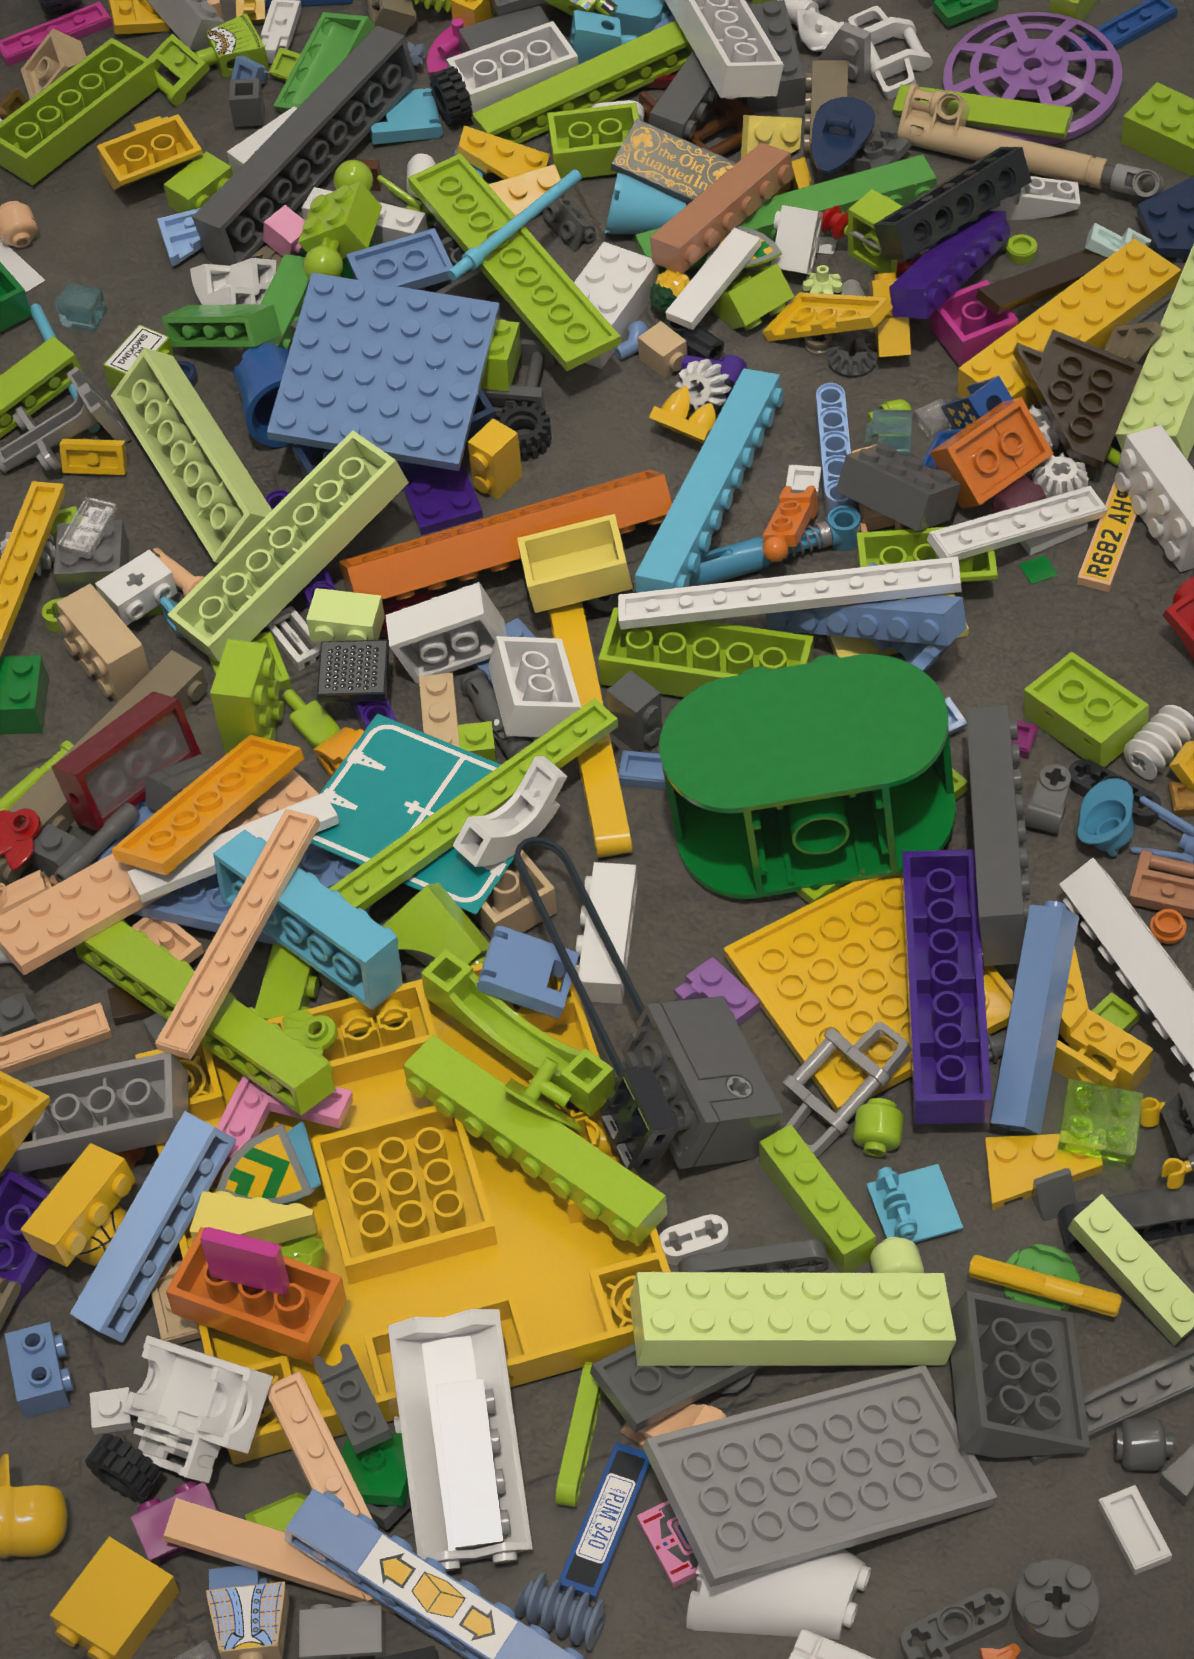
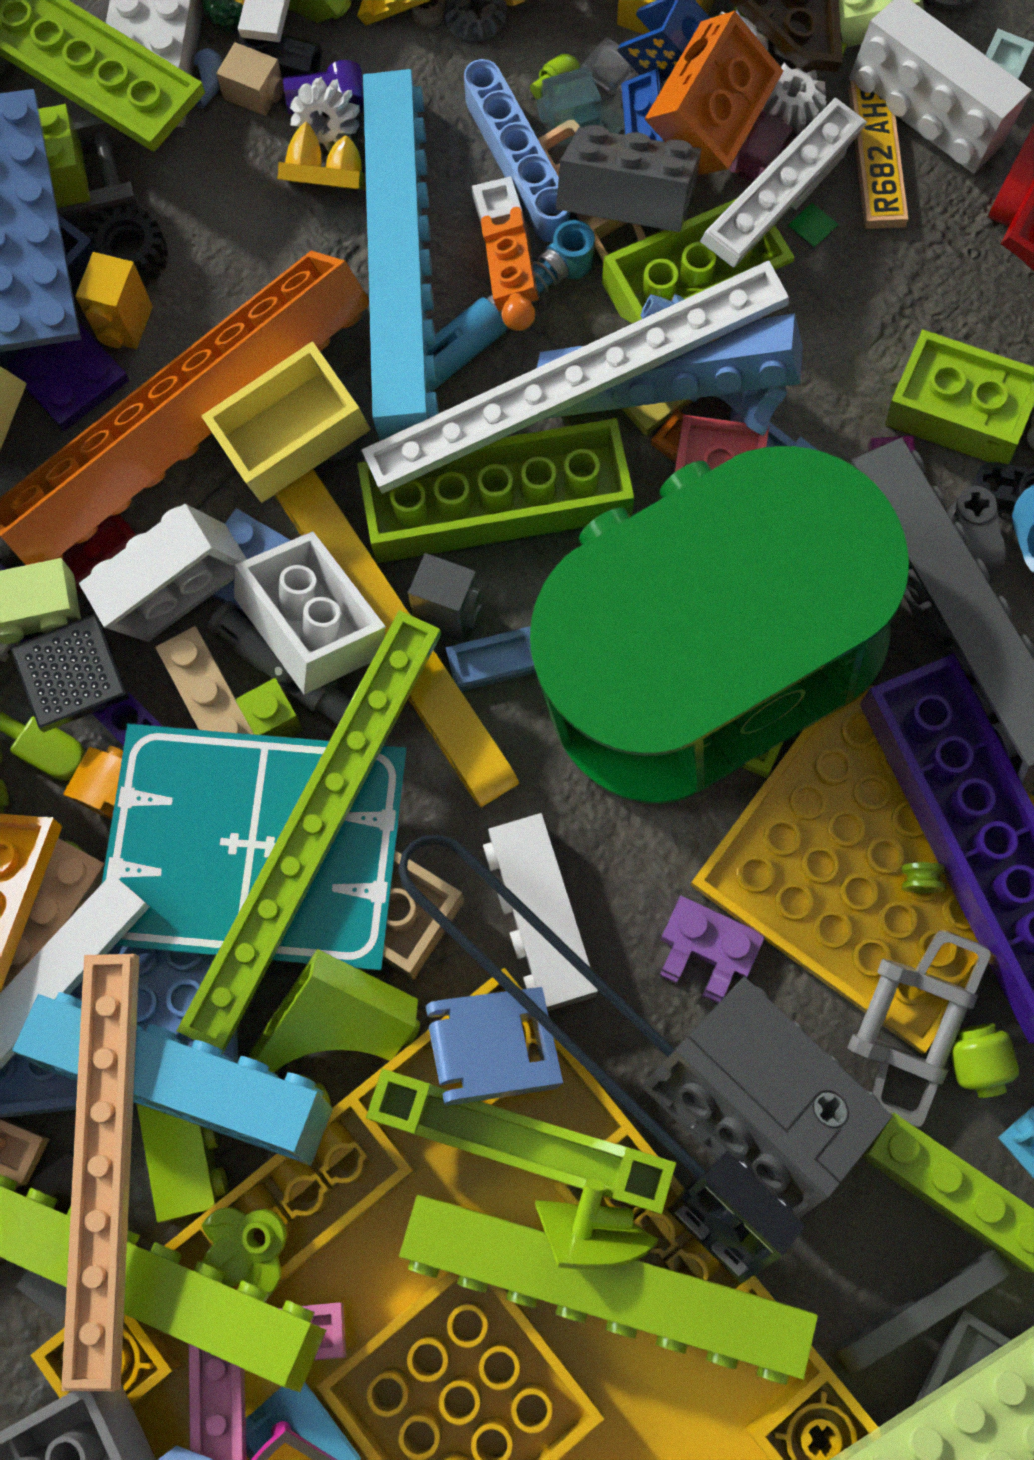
camera: 25 degrees left, 20 degrees up
(495, 836) = (378, 828): white arch -> none
(693, 1237) = (843, 1308): white beam -> none
(888, 993) = (923, 877): none -> lime bush

